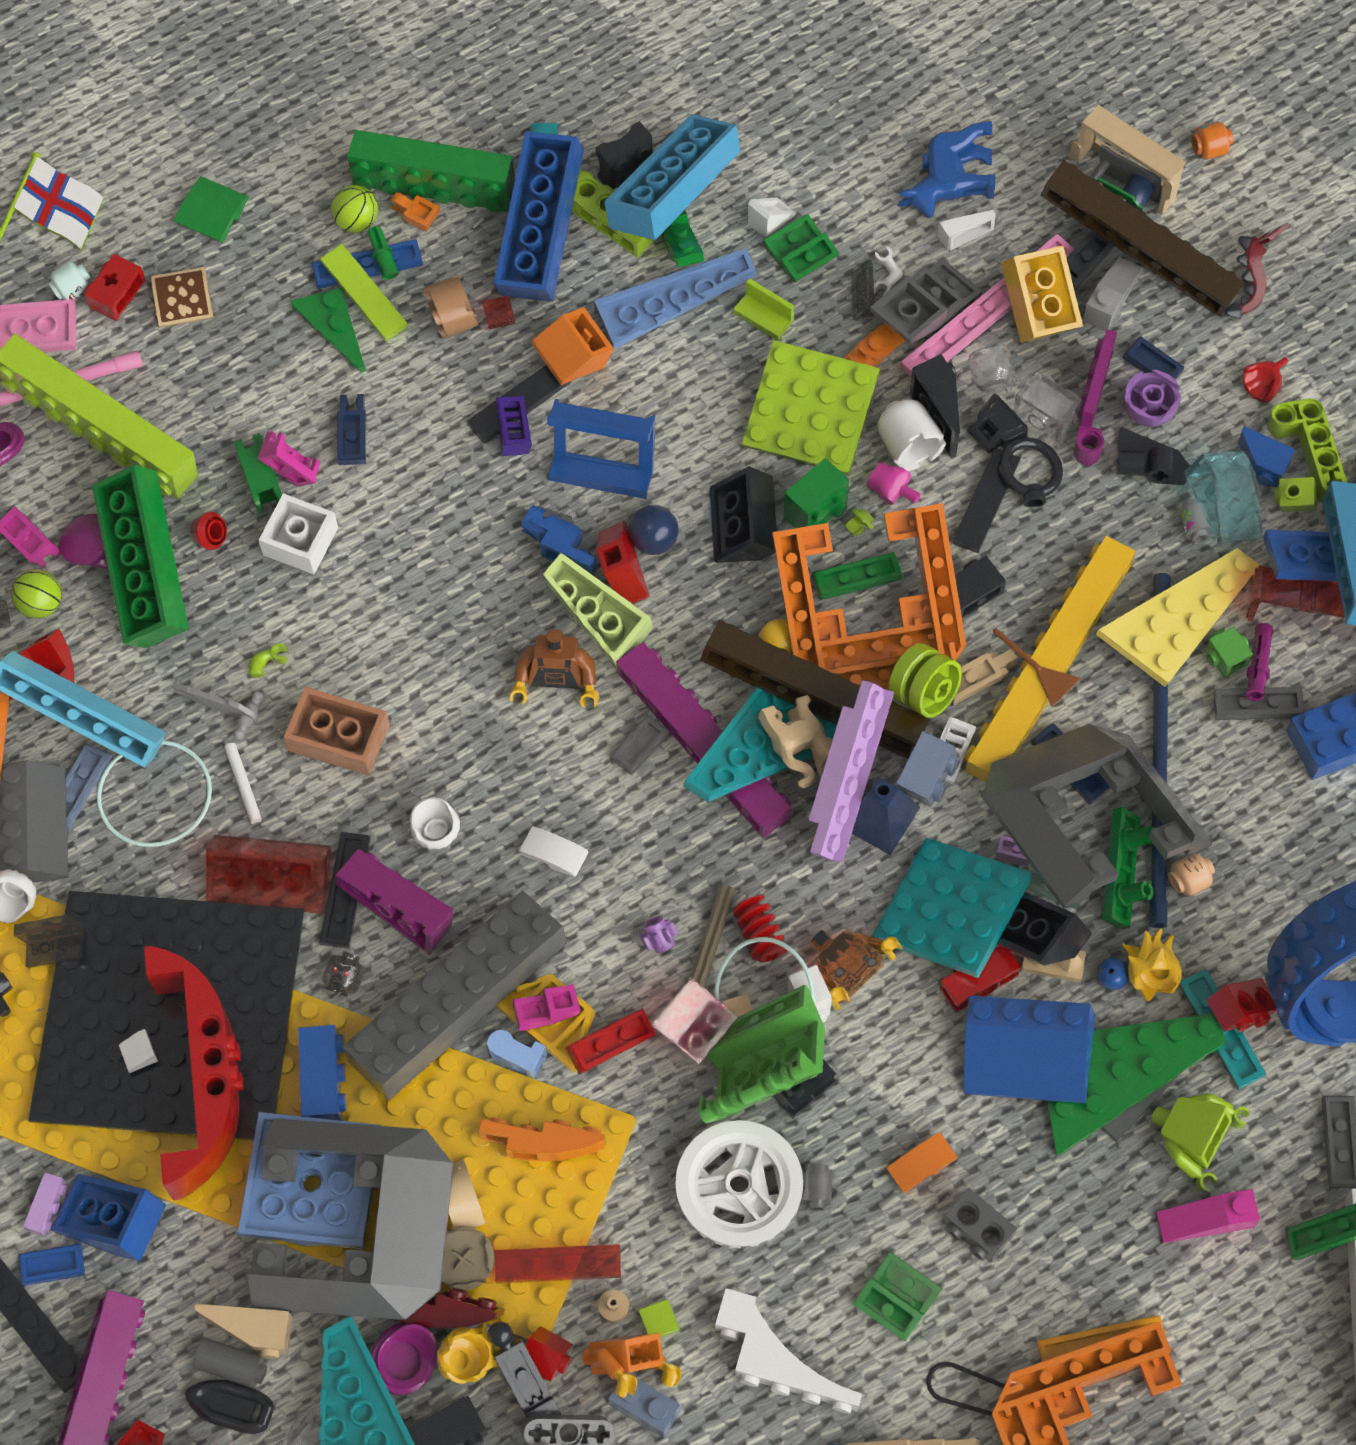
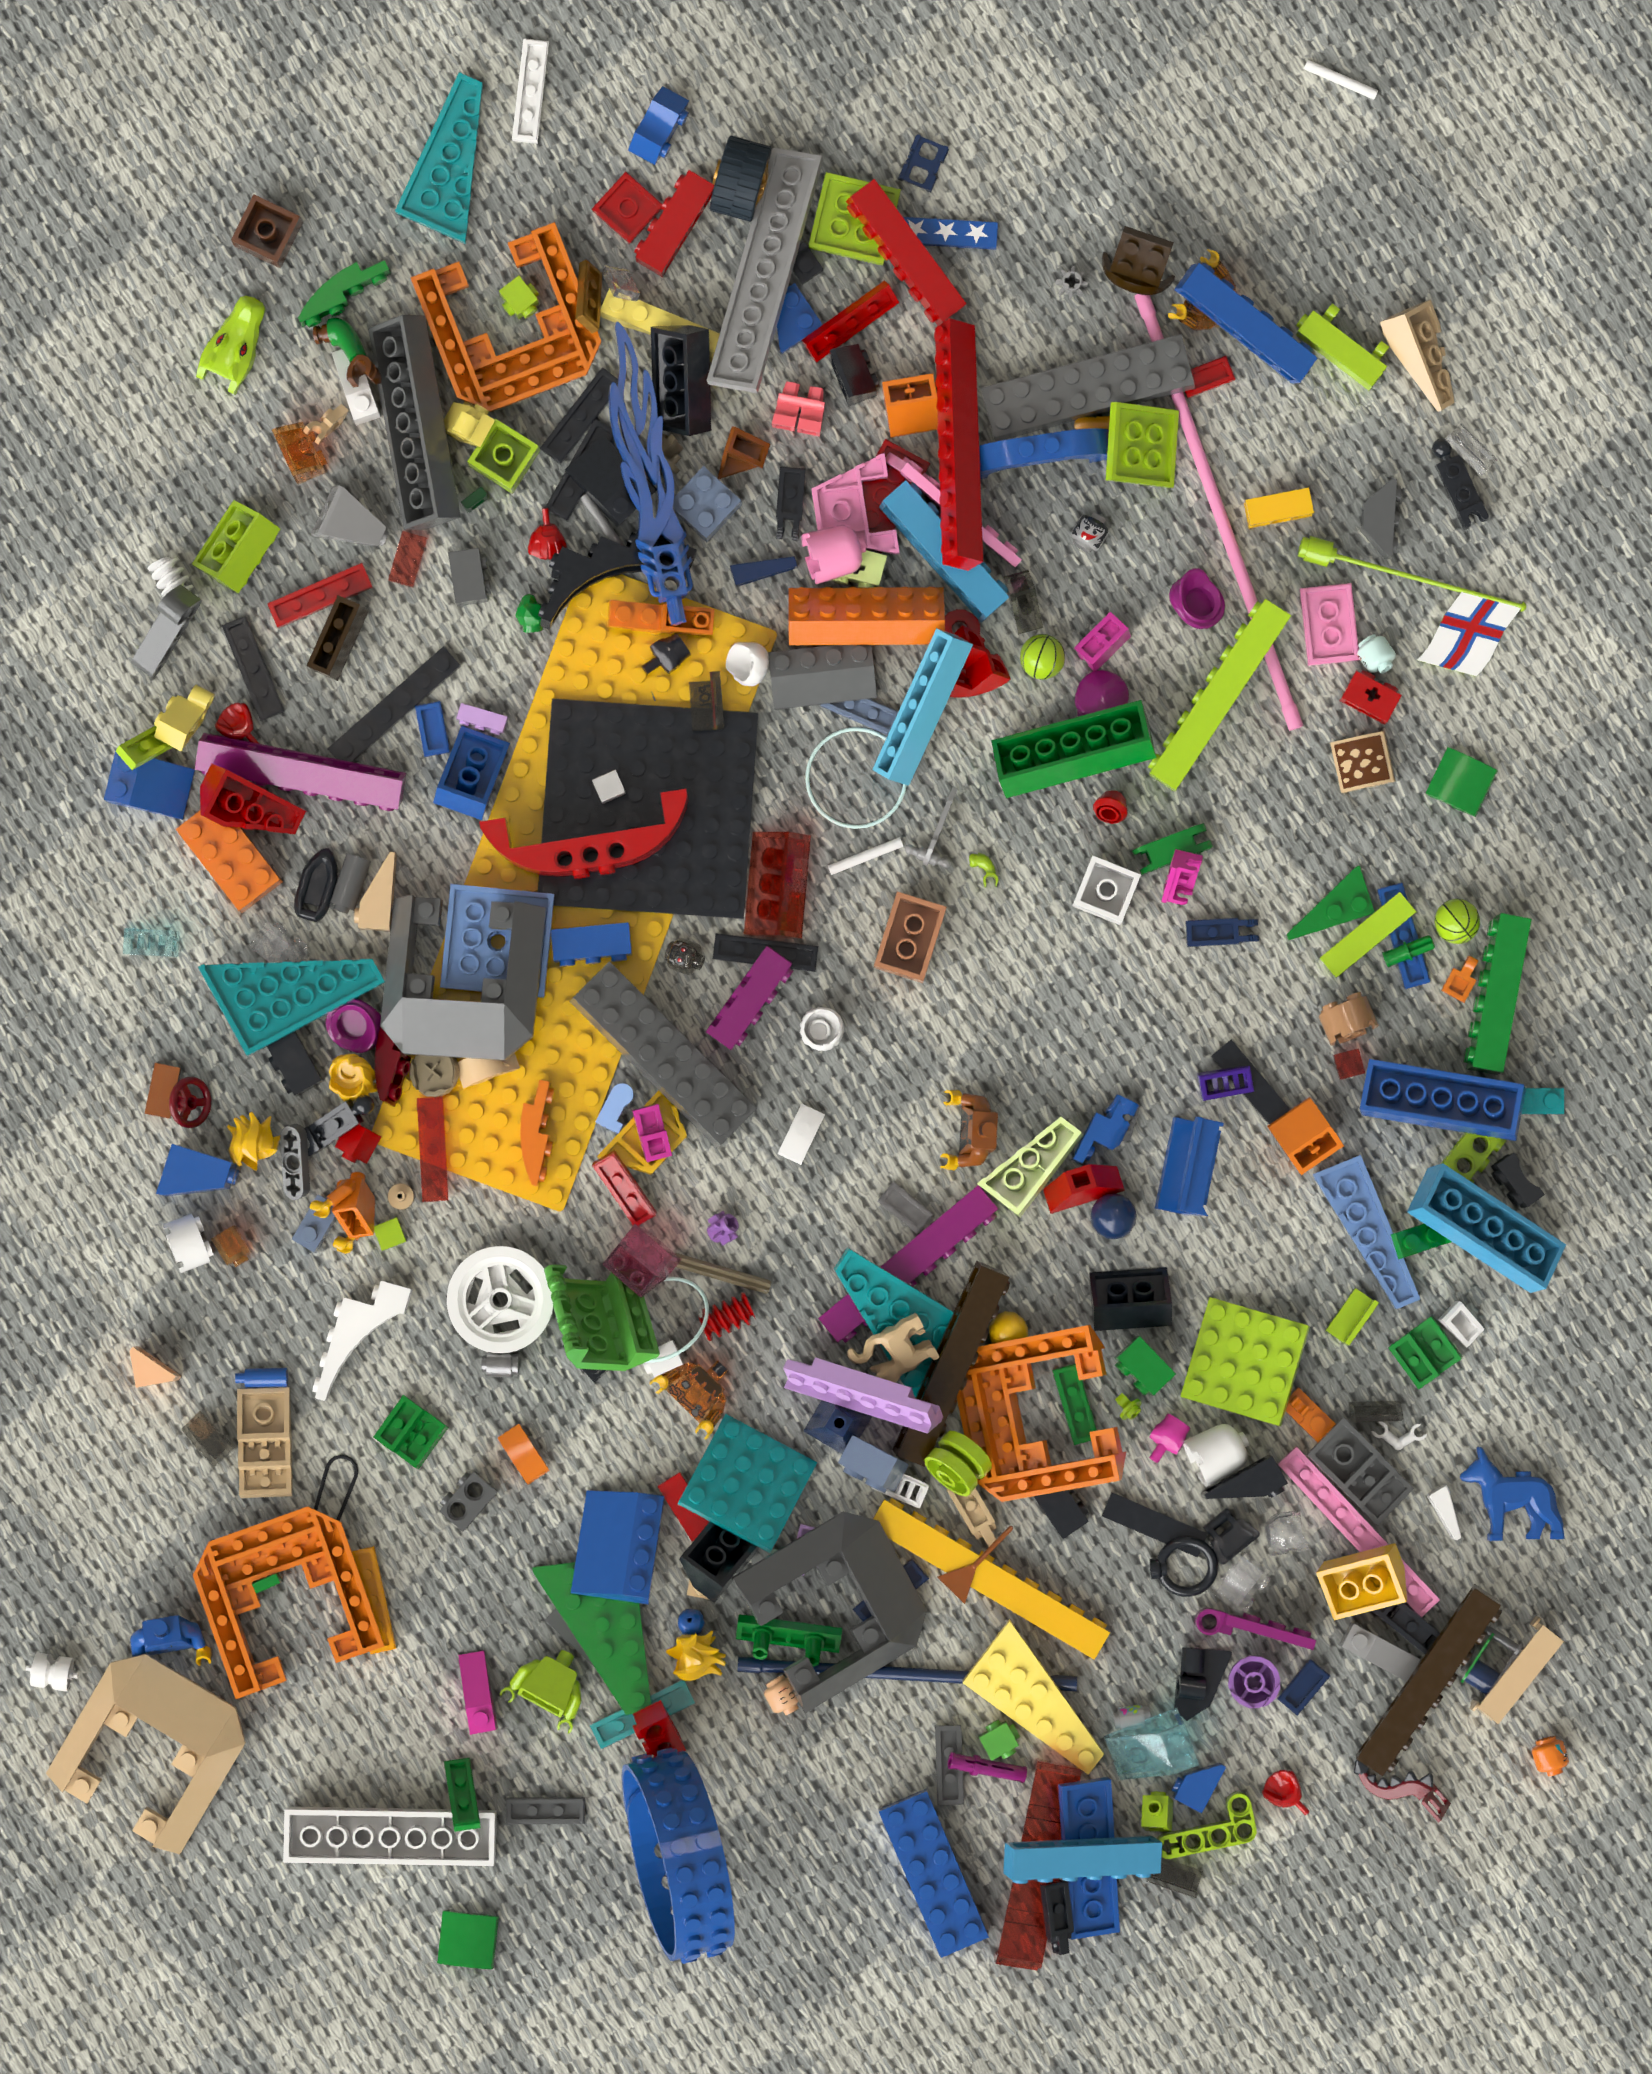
camera: 85 degrees right, 20 degrees up
(738, 1005) = (660, 1297): tan sticker -> none

